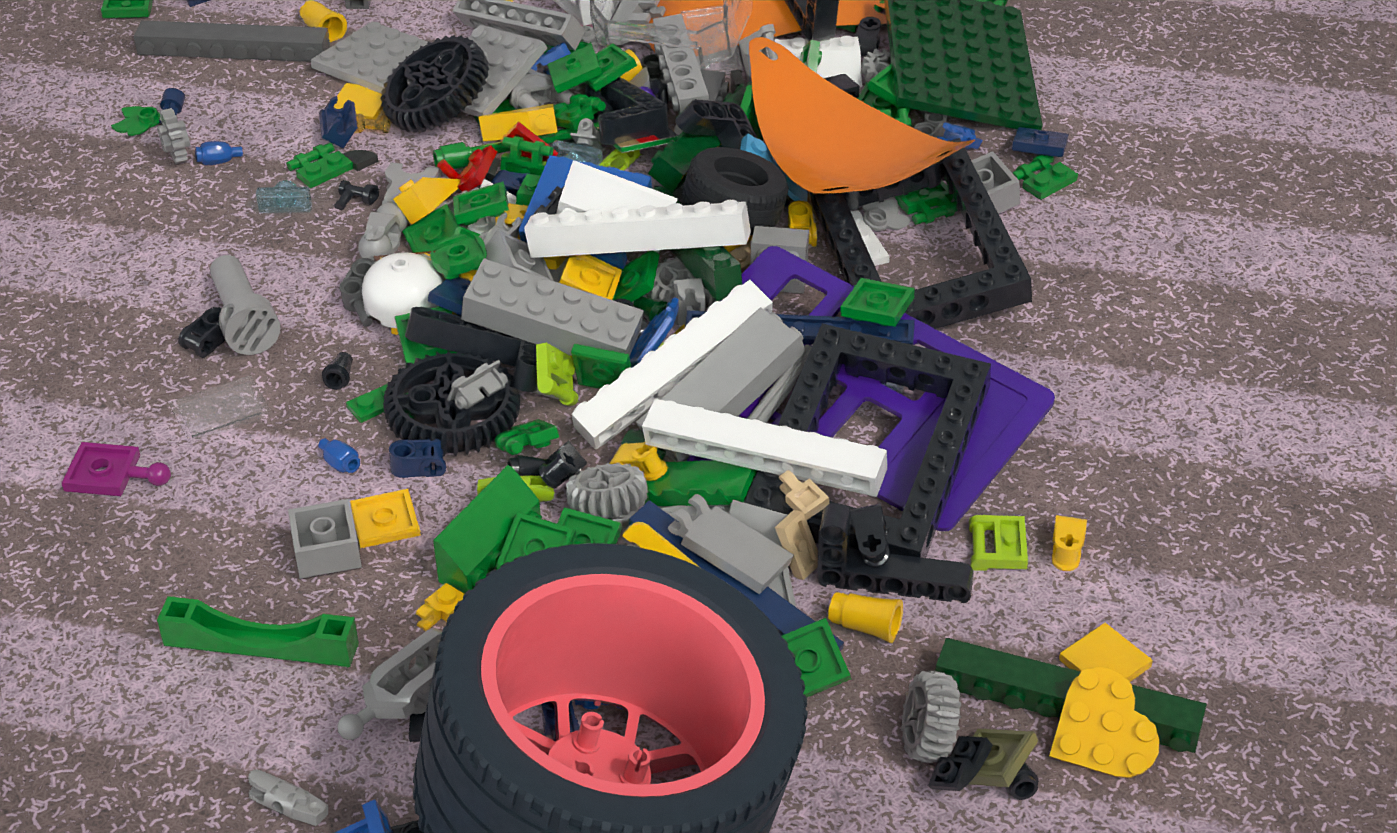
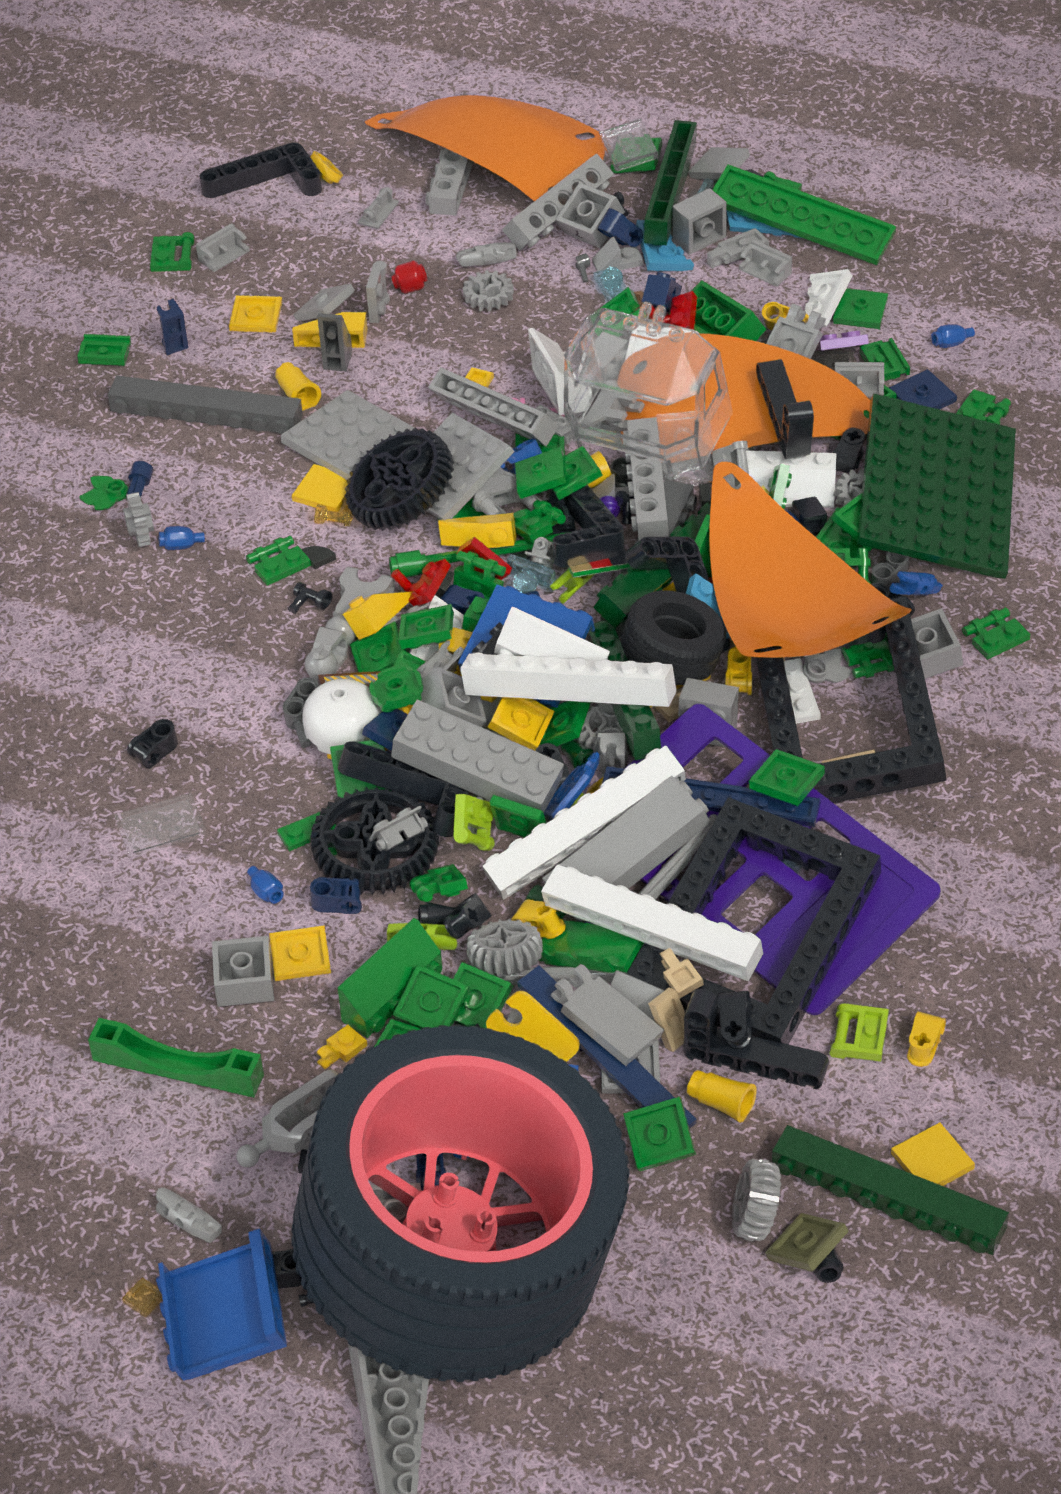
camera: 10 degrees right, 5 degrees up
(113, 480) = (59, 890): magenta plate -> none
(246, 317) = (192, 735): light grey piece -> none
(284, 198) = (240, 597): clear light blue tile -> none
(338, 124) = (300, 513): dark blue hinge -> none
(338, 371) = (272, 796): black cone -> none
(962, 766) = (772, 1251): black slope -> none
(1040, 142) = (1000, 593): dark blue plate -> none
(1102, 728) = (910, 1225): yellow plate -> none

